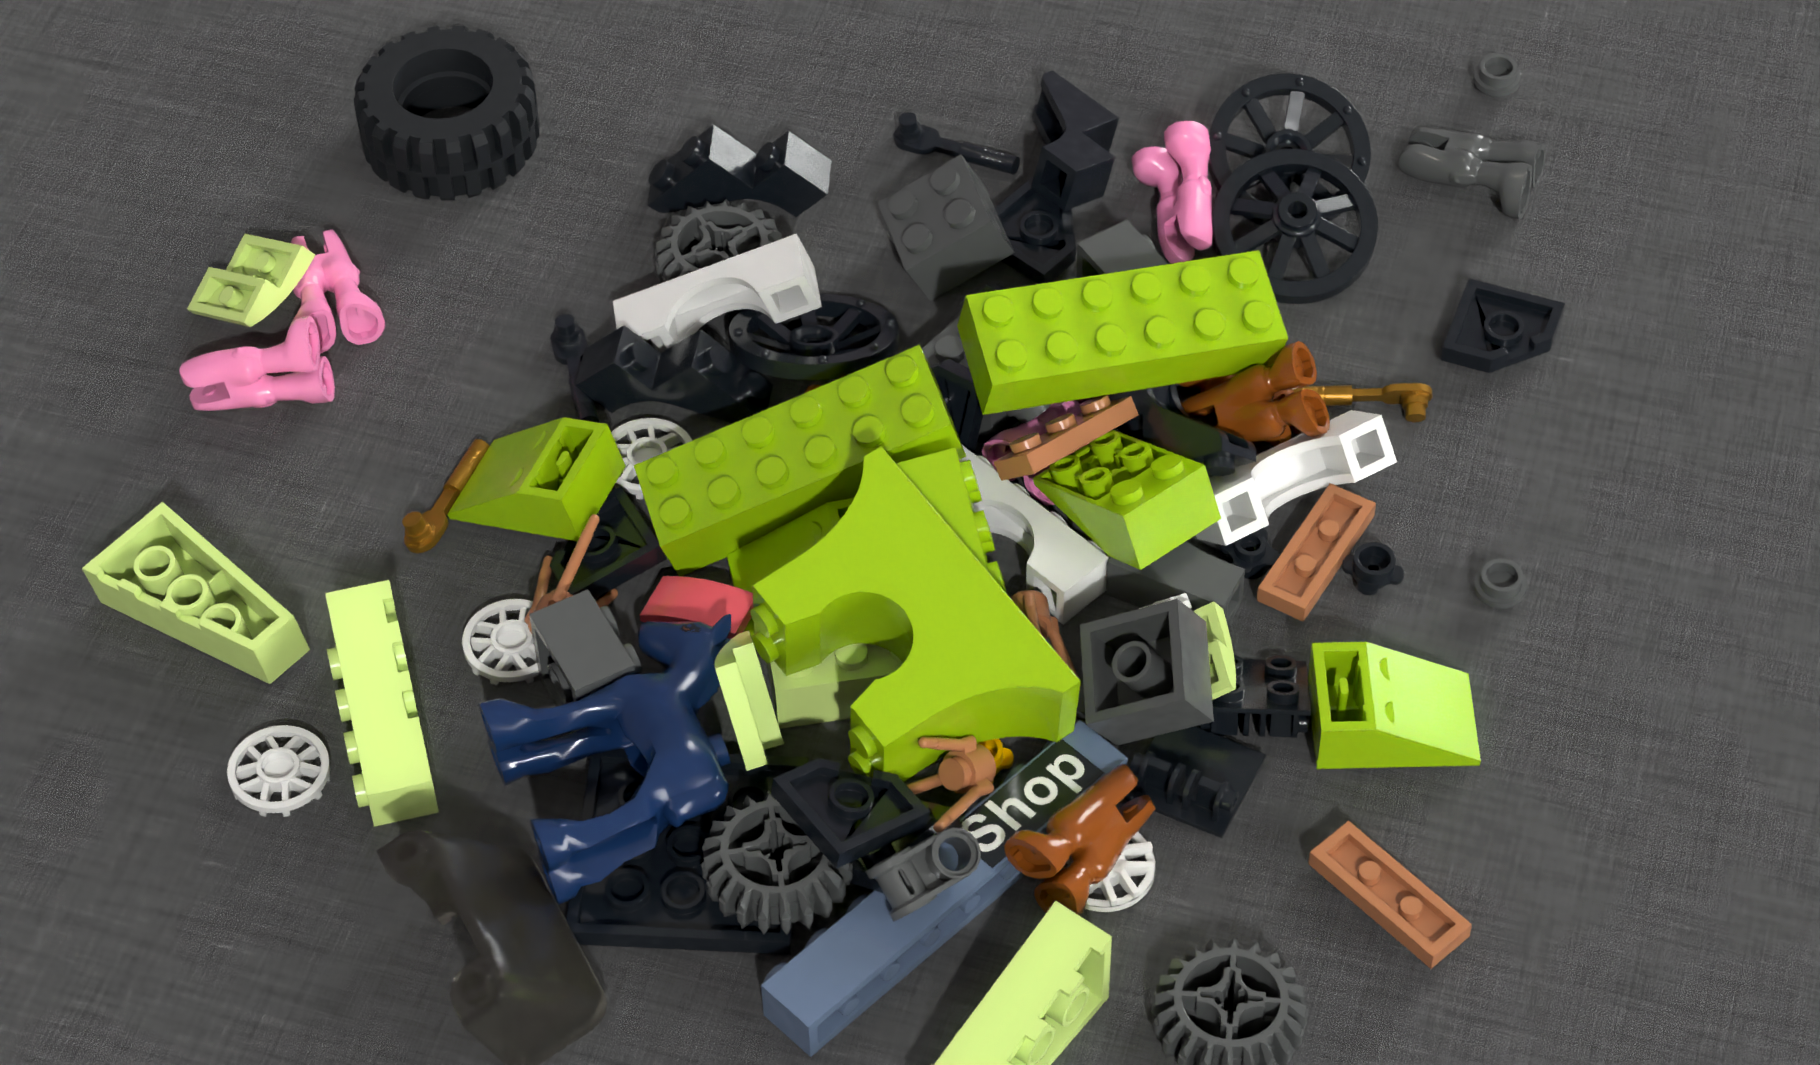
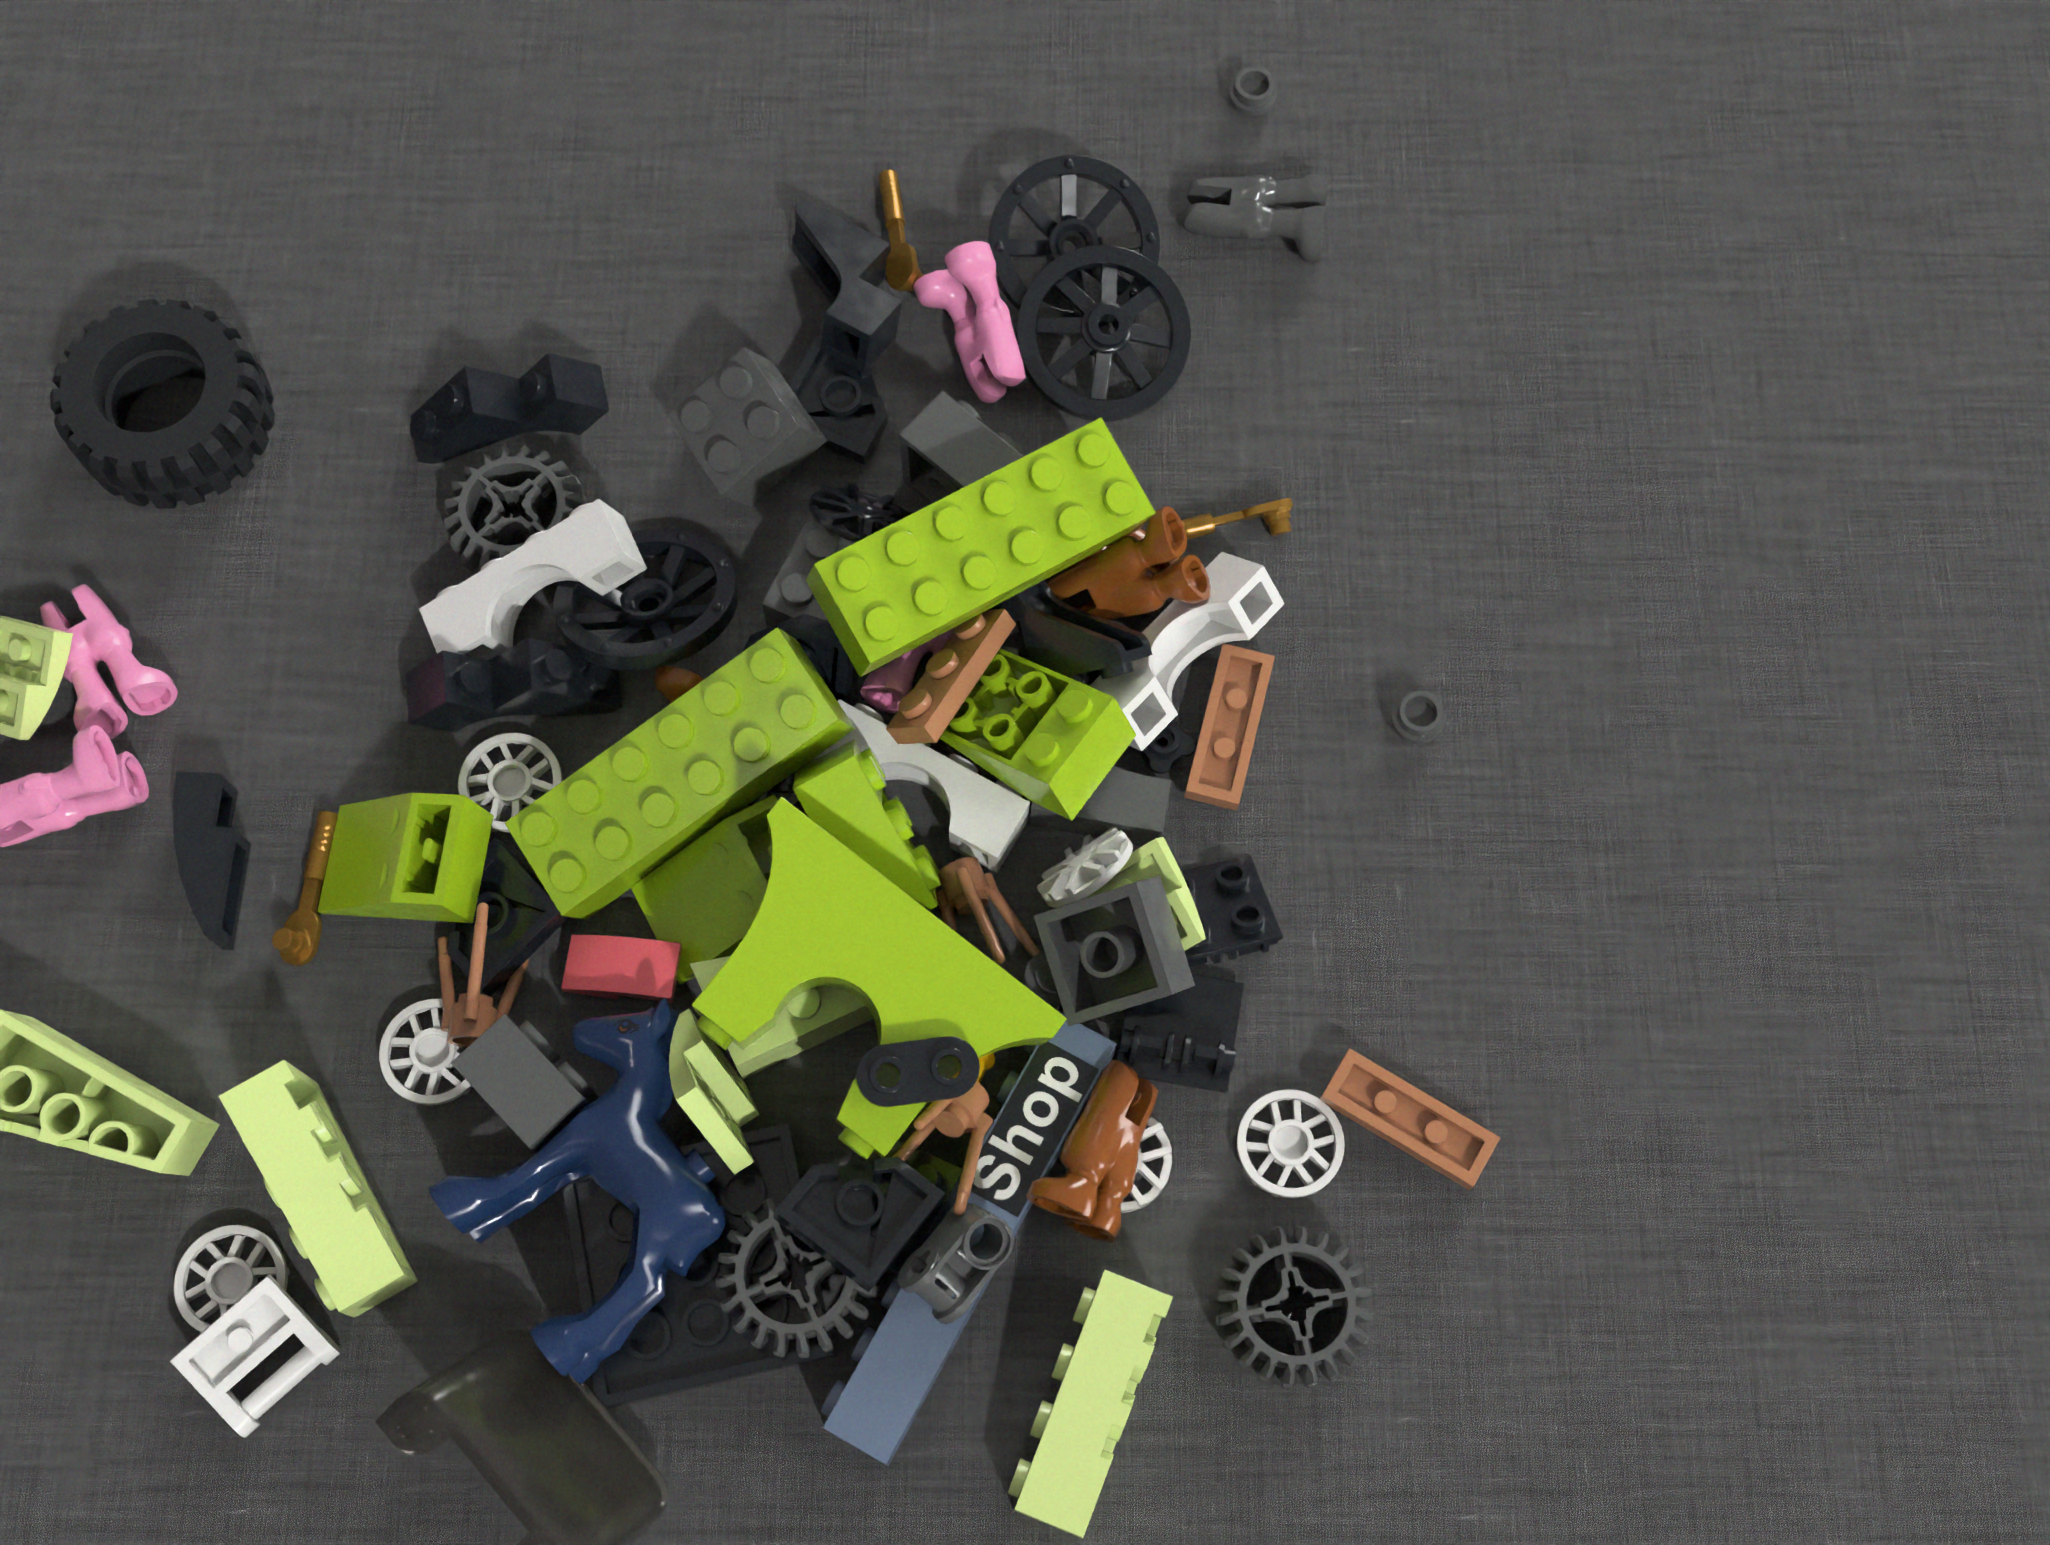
camera: 20 degrees left, 20 degrees up
(274, 805) = (244, 1339): none -> white plate
(374, 444) = (210, 852): none -> black slope
(568, 348) = (389, 666): black piece -> none
(925, 140) = (689, 306): black piece -> none
(932, 685) = (918, 1071): none -> black plate
(1128, 139) = (902, 261): none -> pearl gold piece
(1269, 892) = (1290, 1143): none -> white wheel
(1373, 557) = (1293, 715): black plate -> none
(1388, 709) = (1354, 904): lime slope -> none
(1500, 327) = (1337, 404): black plate -> none

